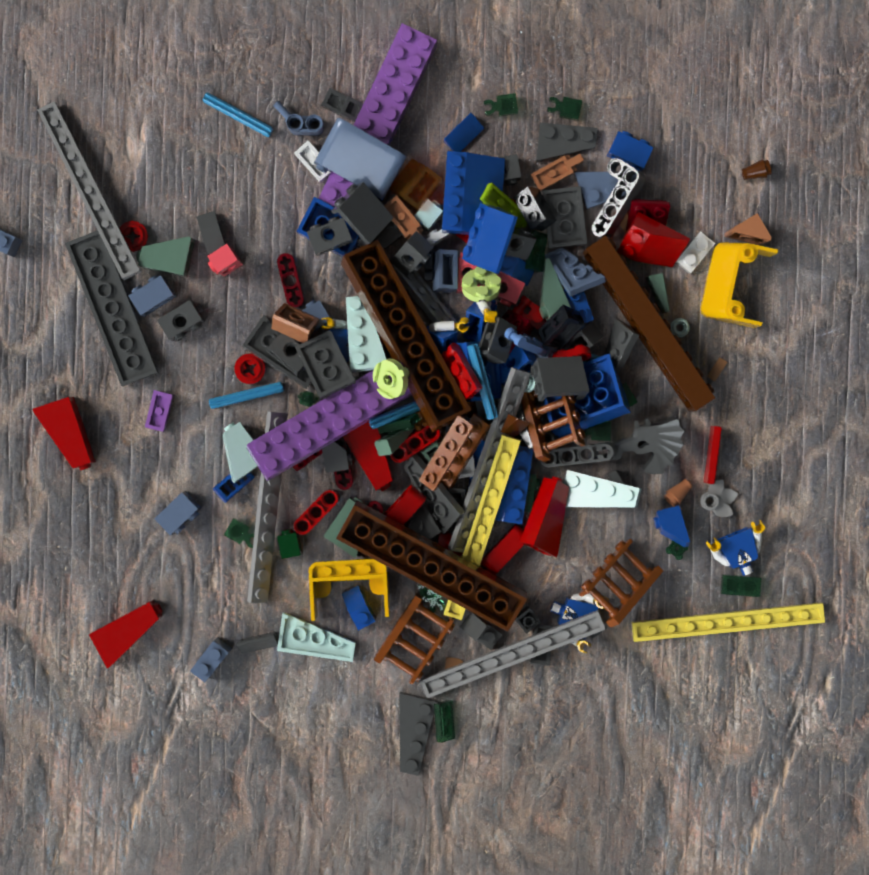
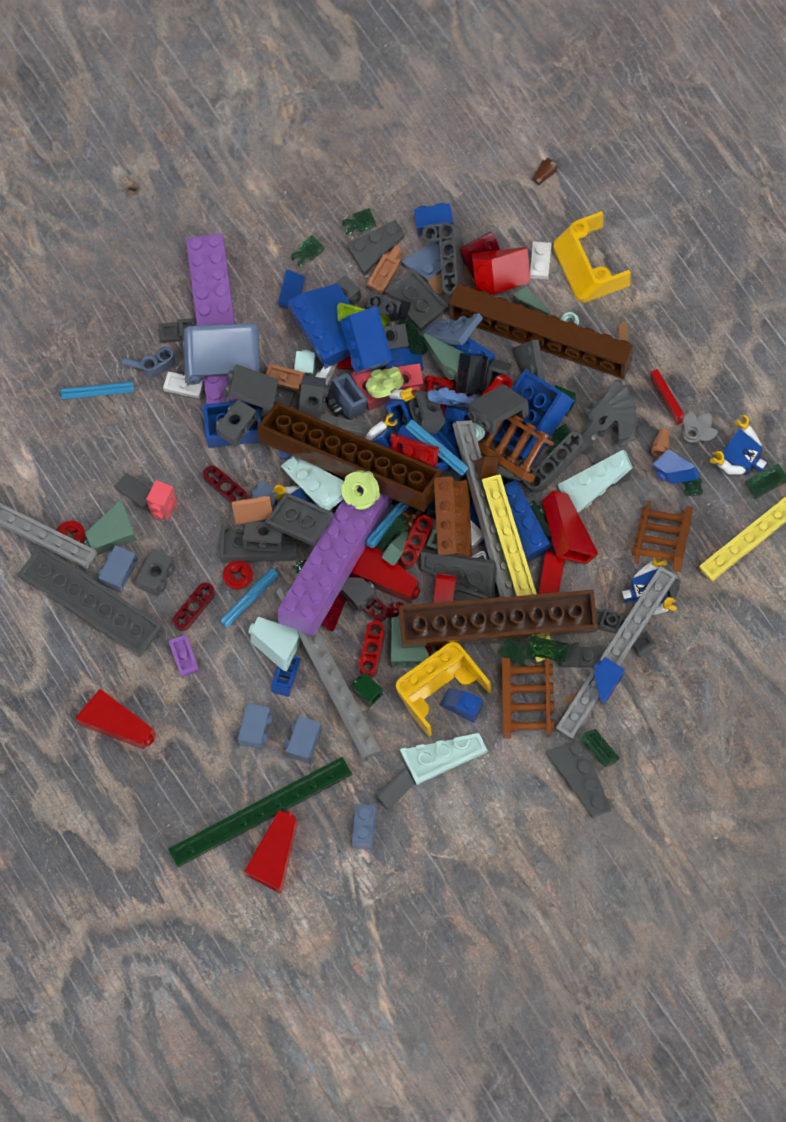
camera: 30 degrees left, 20 degrees down
(136, 588) = (260, 812): none -> dark green plate
(180, 371) = (195, 614): none -> dark red beam
(210, 552) = (303, 740): none -> sand blue brick
(238, 532) = (317, 709): clear green plate -> none
(359, 491) = (393, 609): none -> dark red plate
(415, 184) = (279, 347): clear orange slope -> none
(460, 617) = (547, 649): none -> clear green plate
(487, 676) = (607, 678): none -> blue slope
(591, 214) = (436, 284): none -> medium nougat piece
(750, 231) = (568, 212): nougat slope -> none

